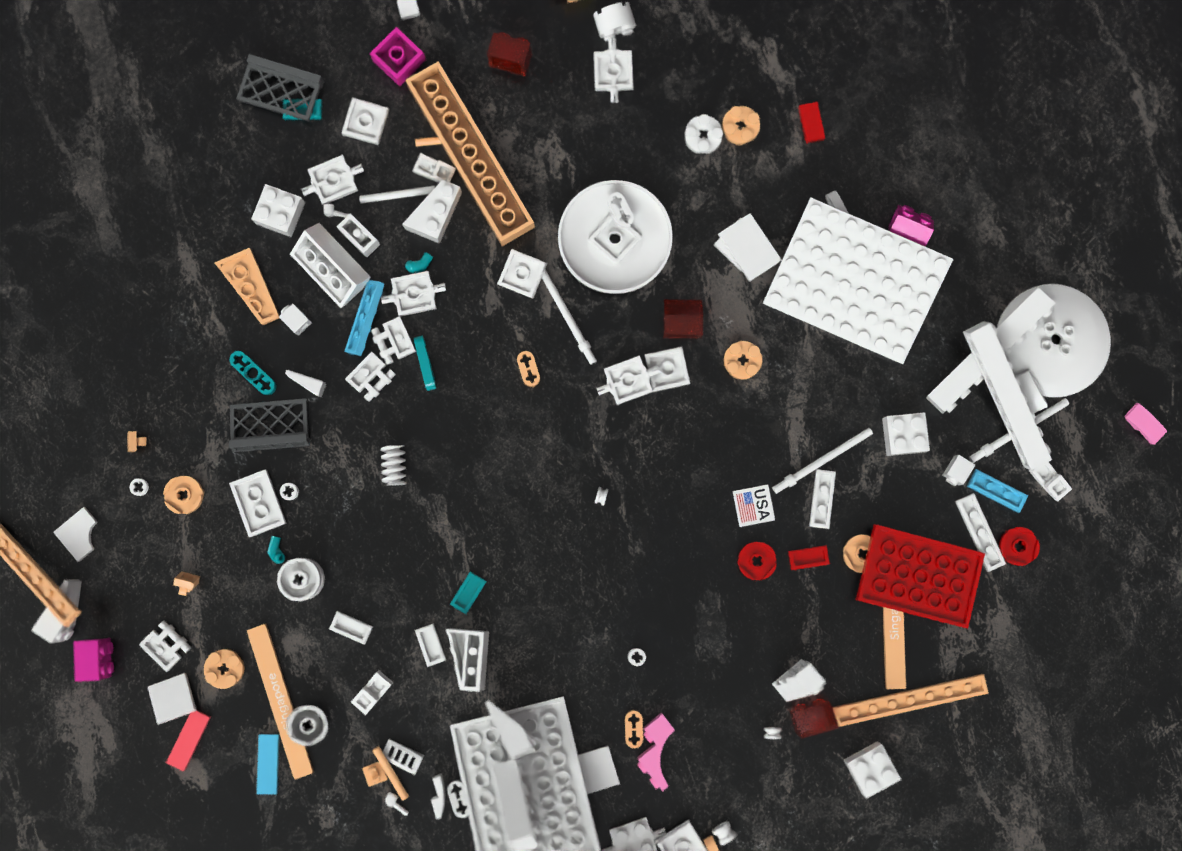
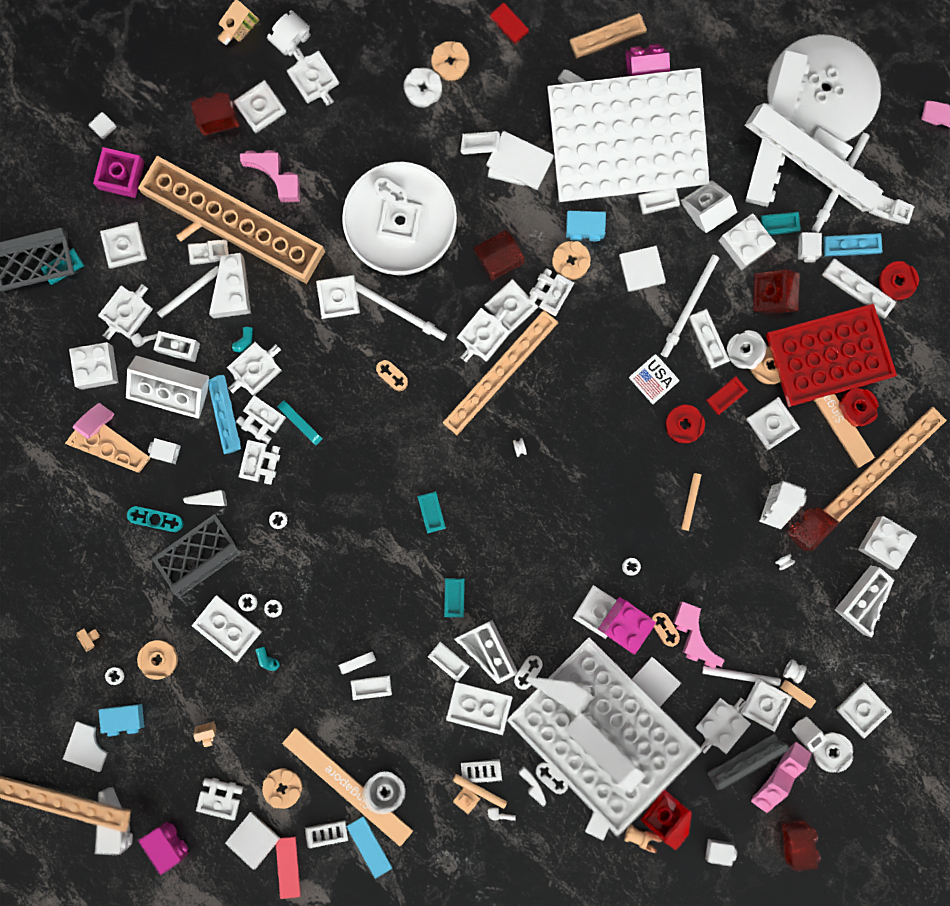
camera: 25 degrees left, 0 degrees up
(122, 527) = (121, 718): none -> medium azure brick
(225, 718) = (309, 837): none -> white slope
(250, 256) = (92, 421): none -> bright pink slope
(289, 577) = (292, 675): white wheel -> none
(310, 504) = (273, 602): none -> white bush
(351, 599) = (357, 662): none -> white beam
(353, 431) = (273, 517): none -> white bush
(372, 692) = (422, 732): white slope -> none
(393, 465) = (324, 526): white piece -> none
(432, 701) = (479, 708): none -> white plate
(491, 690) = (524, 668): none -> white beam
(492, 507) = (431, 512): none -> teal tile
(532, 123) = (270, 163): none -> bright pink arch
(552, 69) = (260, 106): none -> white tile
(585, 679) = (594, 609): none -> white tile
(601, 706) = (626, 625): none -> dark pink brick
(623, 421) = (500, 372): none -> light nougat tile
(675, 808) = (740, 675): none -> white bar
(711, 382) = (556, 294): none -> white plate
(722, 631) = (691, 502): none -> light nougat bar
(724, 211) = (480, 142): none -> white tile
(773, 337) = (585, 225): none -> medium azure brick
(800, 403) = (642, 268): none -> white tile
(823, 808) = (865, 600): none -> white wedge
(834, 606) = (773, 423): none -> white tile
(849, 538) = (751, 358): none -> white plate
(850, 352) = (658, 200): none -> white tile
(891, 183) = (608, 35): none -> light nougat tile
(891, 383) = (709, 206): none -> white slope
(905, 492) = (776, 291): none -> clear red slope
(908, 636) = (850, 411): none -> red plate
(945, 435) = (781, 223): none -> teal tile

